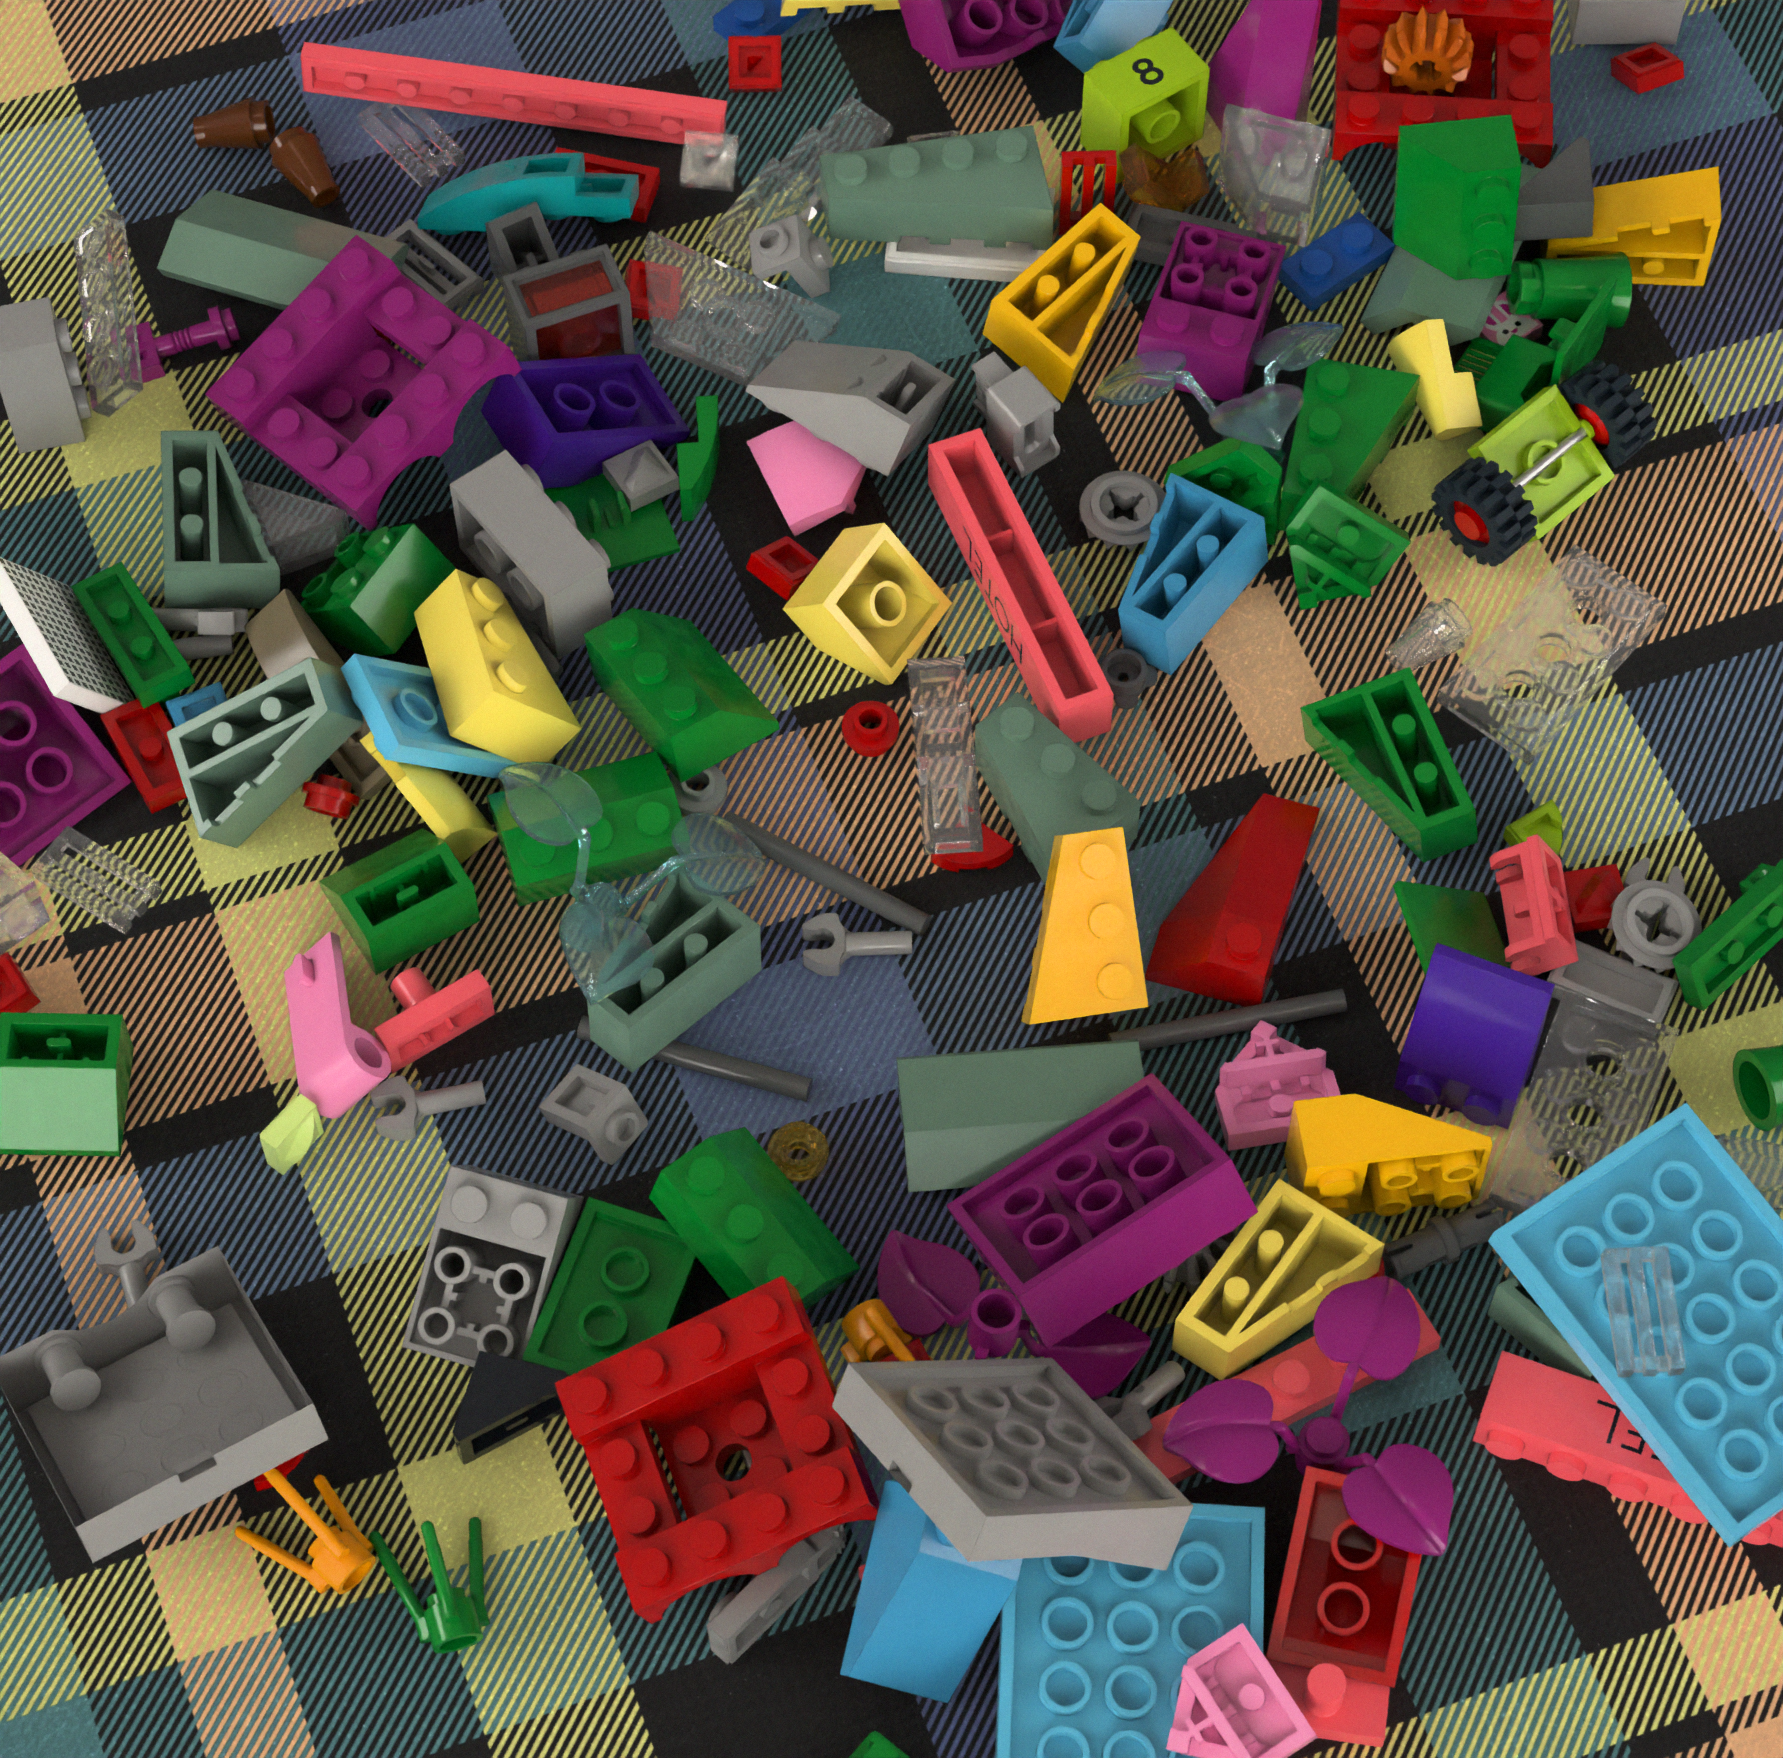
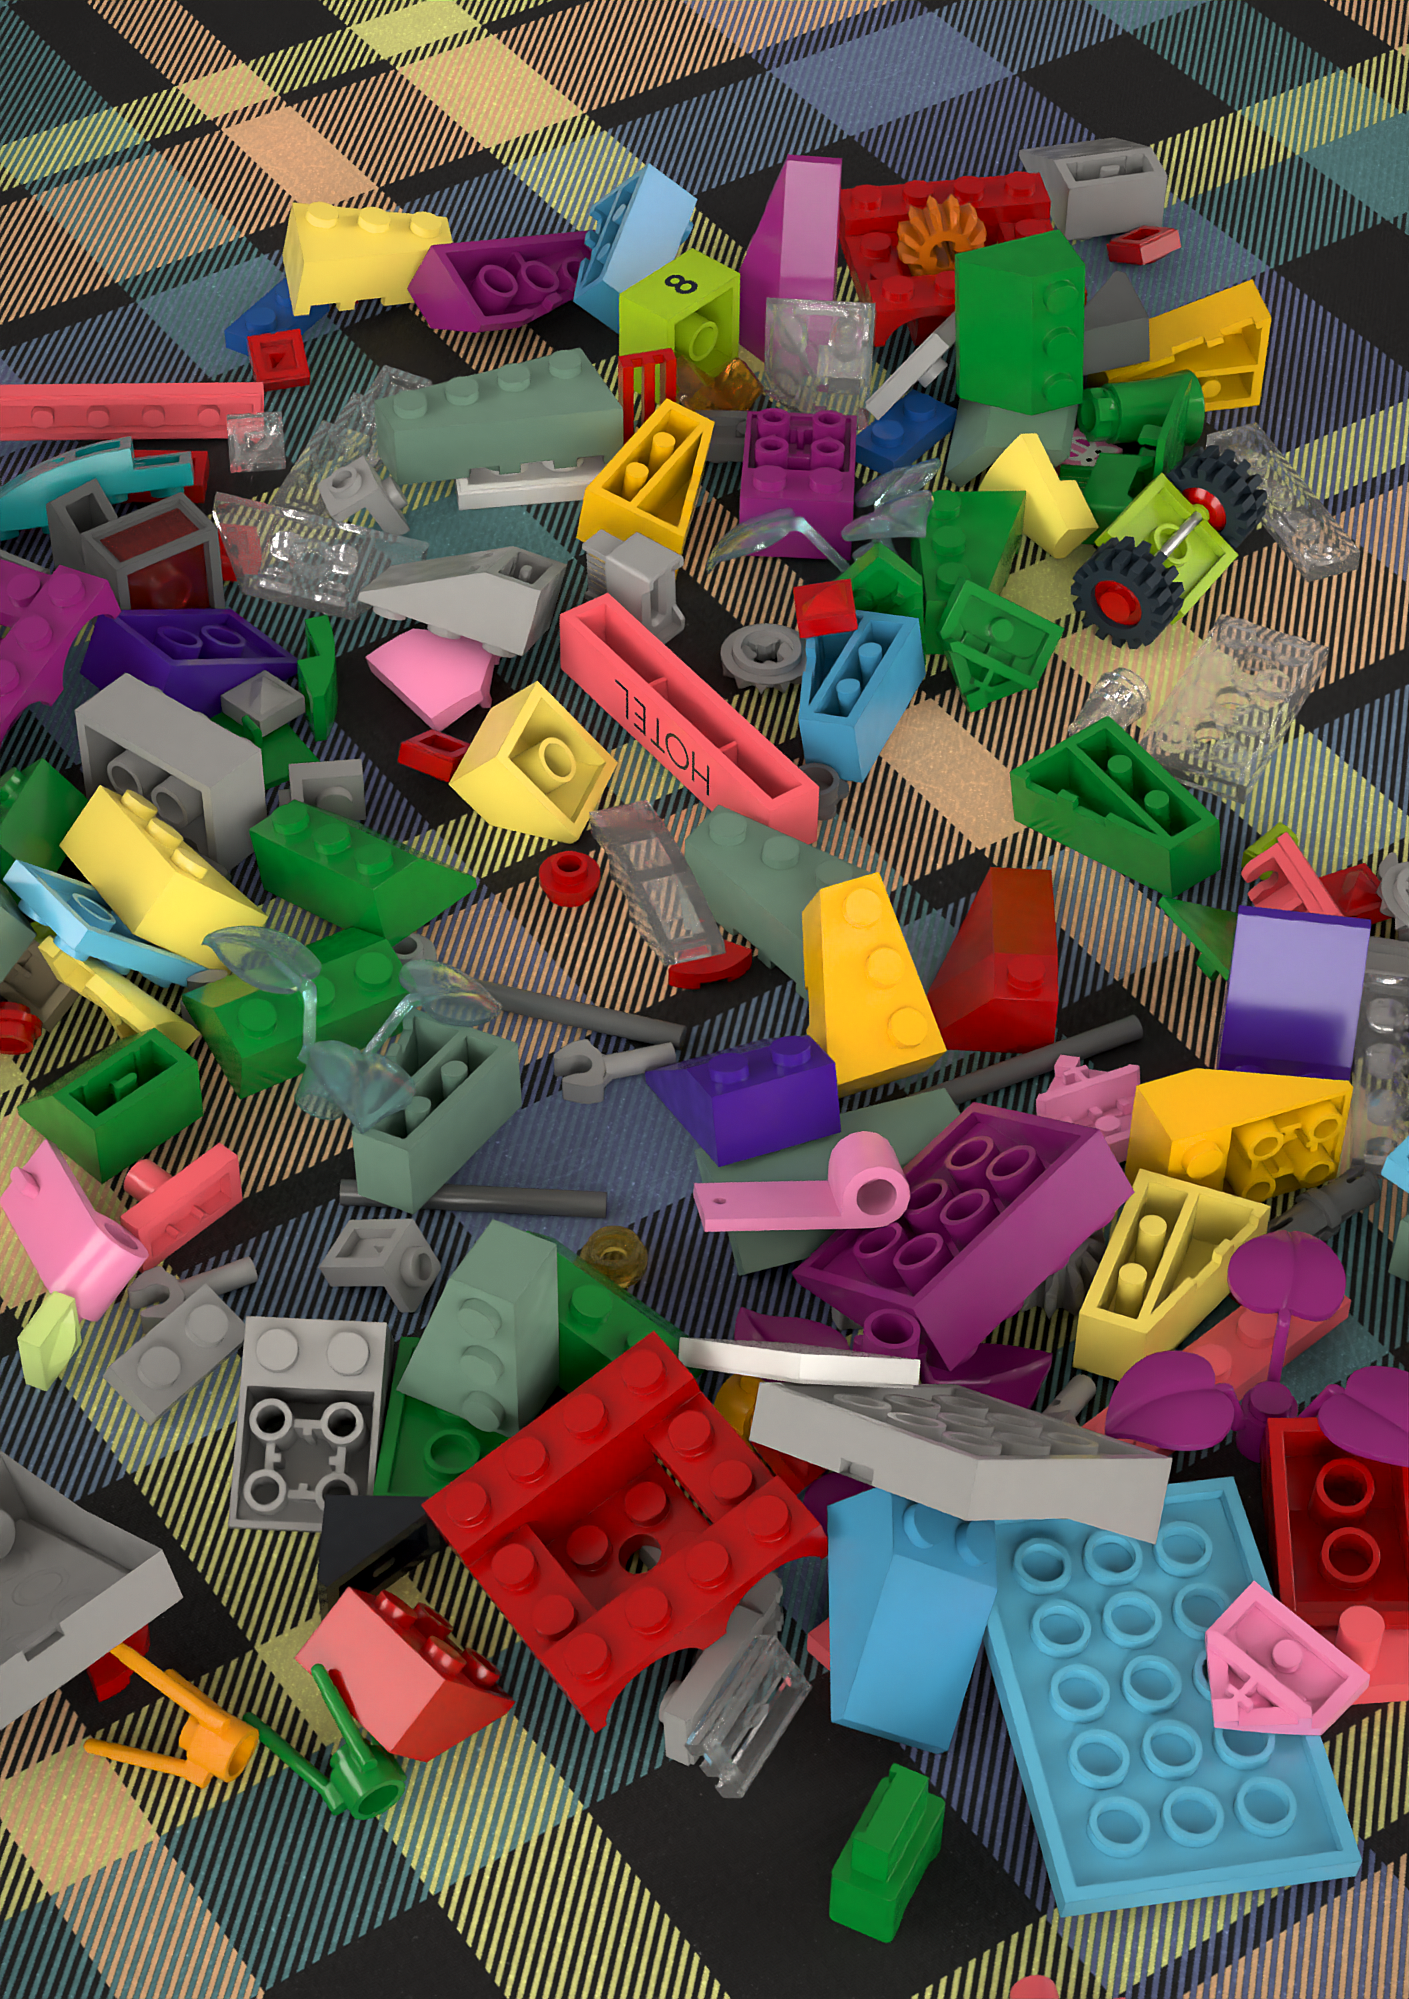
camera: 15 degrees left, 15 degrees down
(397, 1169) = (177, 1354): none -> light grey plate
(505, 1536) = (405, 1674): none -> slope
(652, 1242) = (493, 1334): none -> sand green wedge
(669, 591) = (329, 786): none -> light grey bracket
(779, 1630) = (743, 1706): none -> clear tile
(905, 1326) = (799, 1363): none -> white tile
(957, 1014) = (752, 1097): none -> dark purple slope
(1014, 1153) = (861, 1192): none -> bright pink door
(1179, 487) = (825, 608): none -> red tile
(1359, 200) = (921, 366): none -> light grey plate
(1683, 419) = (1293, 511): none -> clear plate

